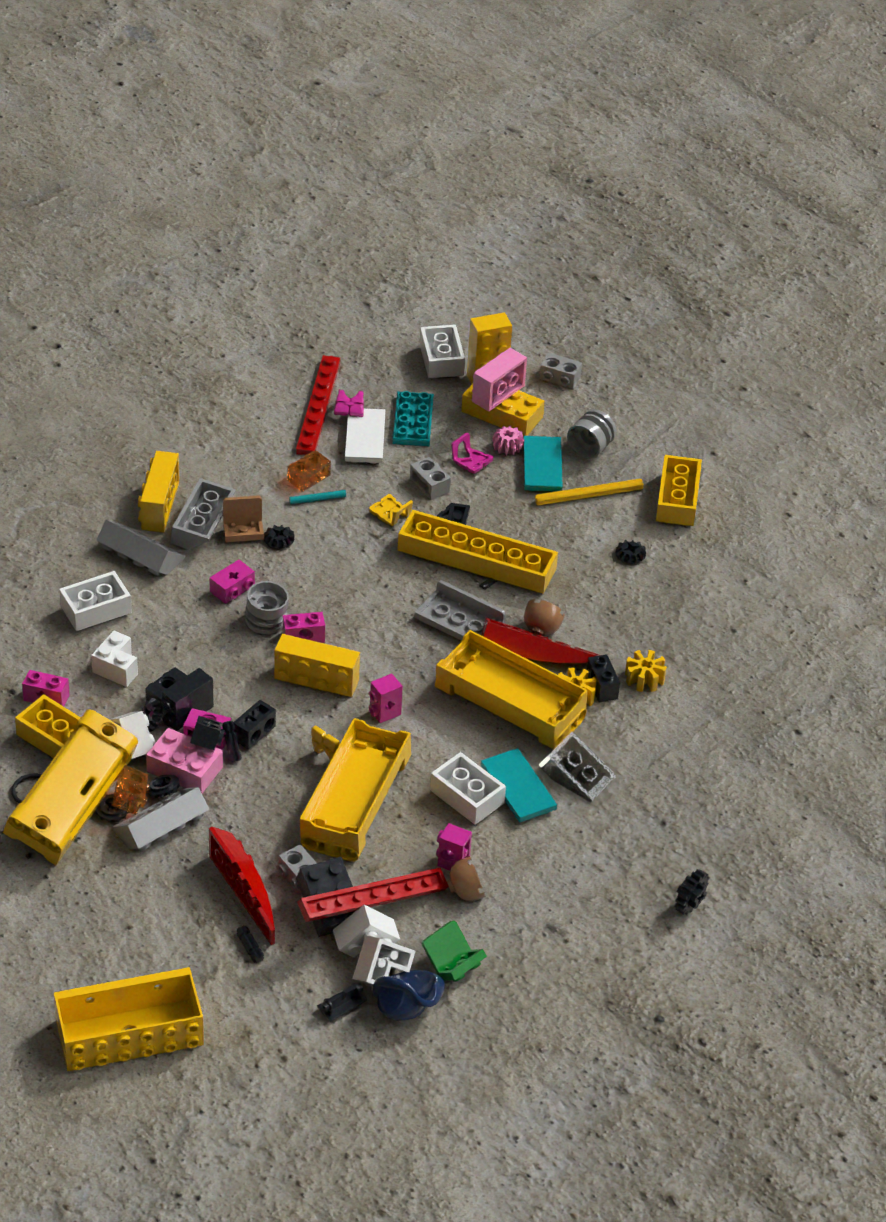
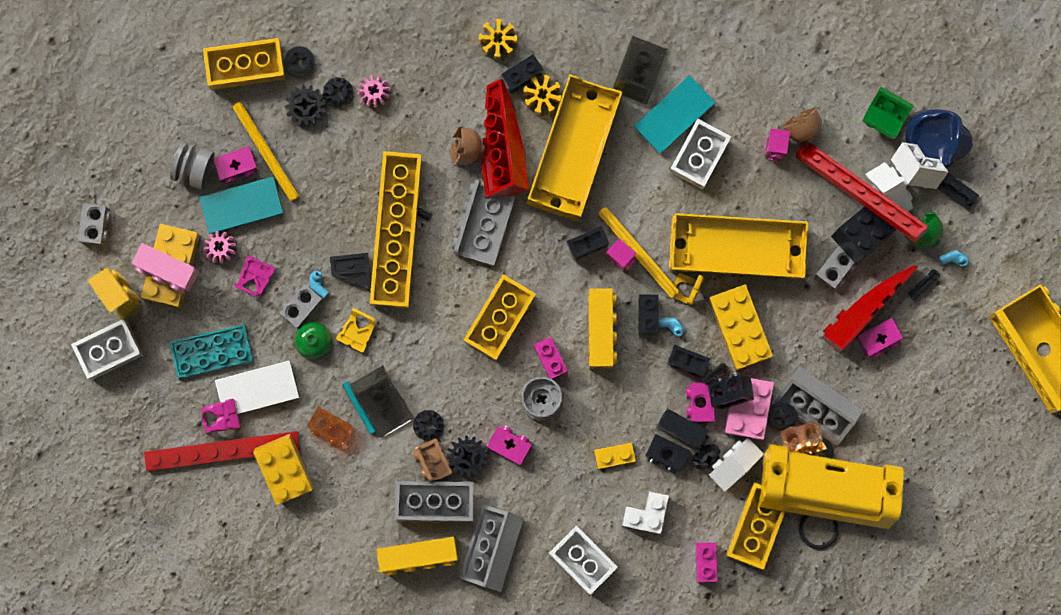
camera: 105 degrees left, 40 degrees up
(186, 655) = (614, 455): none -> yellow plate
(209, 886) = (886, 329): none -> dark pink brick
(235, 548) = (459, 460): none -> black gear
(269, 980) = (955, 257): none -> medium azure arm
(271, 775) = (740, 327): none -> yellow brick
(282, 427) = (283, 469): none -> yellow brick
(294, 732) = (673, 324): none -> medium azure arm
(306, 953) = (933, 234): none -> green cylinder
(316, 709) = (648, 314): none -> black brick
(317, 507) = (381, 401): none -> clear smoke slope
(360, 600) = (499, 317): none -> yellow brick
(394, 479) = (313, 340): none -> green cylinder
(394, 719) = (641, 255): none -> yellow axle
(408, 675) = (587, 243): none -> black brick
(446, 495) = (316, 284): none -> medium azure arm
(583, 467) = (225, 163): none -> dark pink brick
(622, 572) = (371, 85): none -> bright pink gear
(624, 524) = (313, 105): none -> black gear
(677, 530) = (303, 53): none -> black gear

